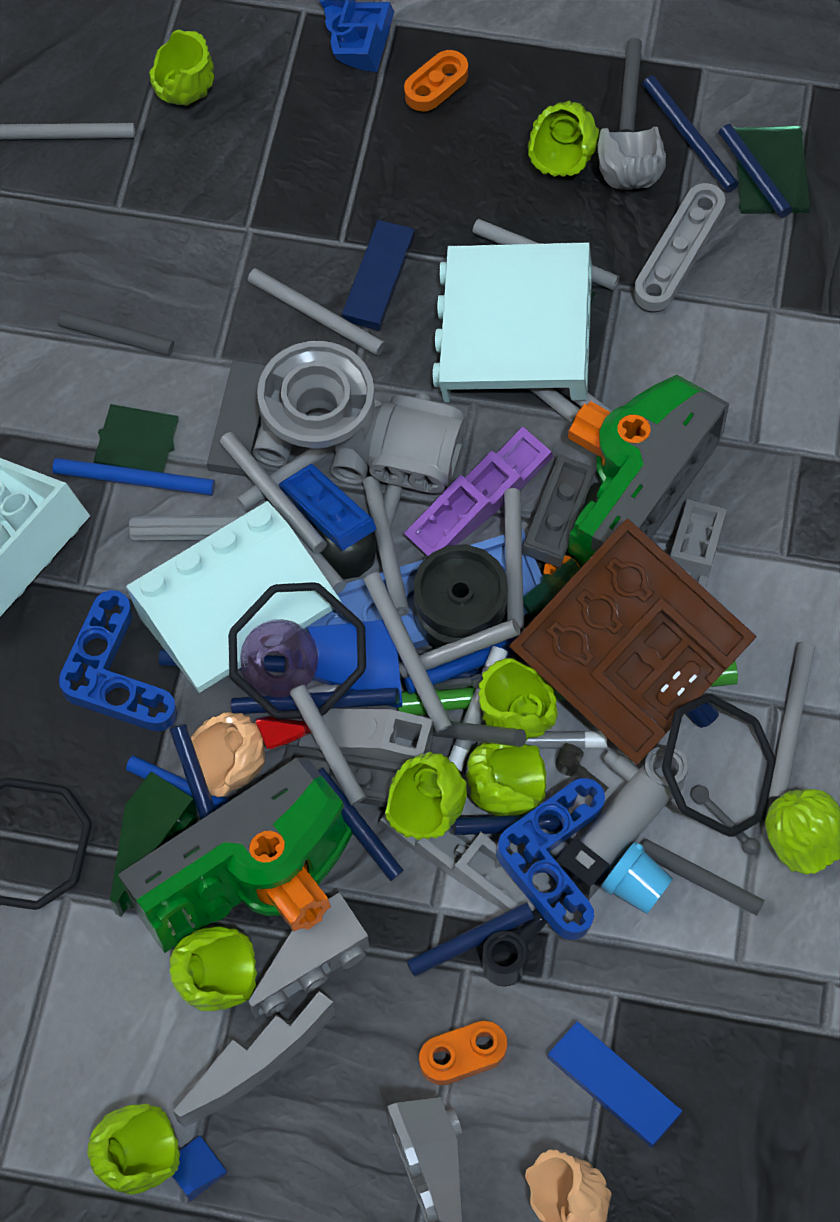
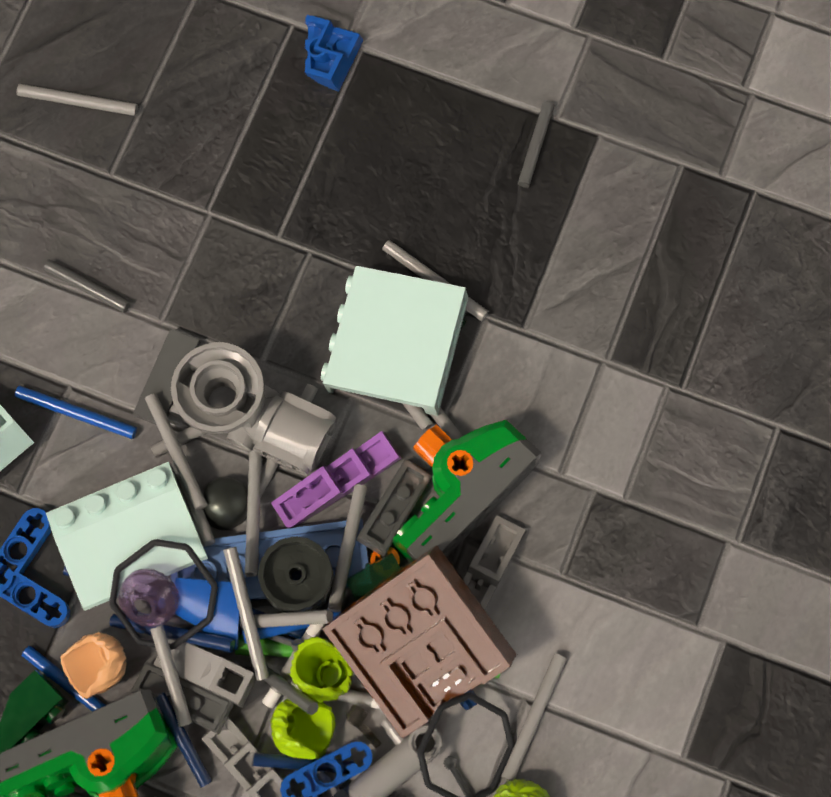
camera: 10 degrees right, 10 degrees up
(136, 438) = (84, 380): clear green piece -> none
(177, 526) = (104, 463): light grey axle -> none
(182, 69) = (181, 67): lime hair -> none
(192, 770) = (67, 679): dark blue bar -> none
(281, 732) = (138, 656): red slope -> none
(316, 312) = (245, 297): light grey bar -> none
(327, 507) = (214, 473): blue tile -> none
(378, 275) = (300, 274): dark blue tile -> none
(426, 796) = (234, 737): lime hair -> none
(433, 82) = (380, 110): orange plate -> none
(563, 139) = (468, 186): lime hair -> none
(631, 158) = (519, 210): light grey hair -> none
(679, 247) = (541, 295): light grey plate -> none
(690, 134) = (574, 194): dark blue bar -> none
(755, 171) = (617, 239): dark blue bar -> none
(783, 159) = (631, 238): clear green piece -> none

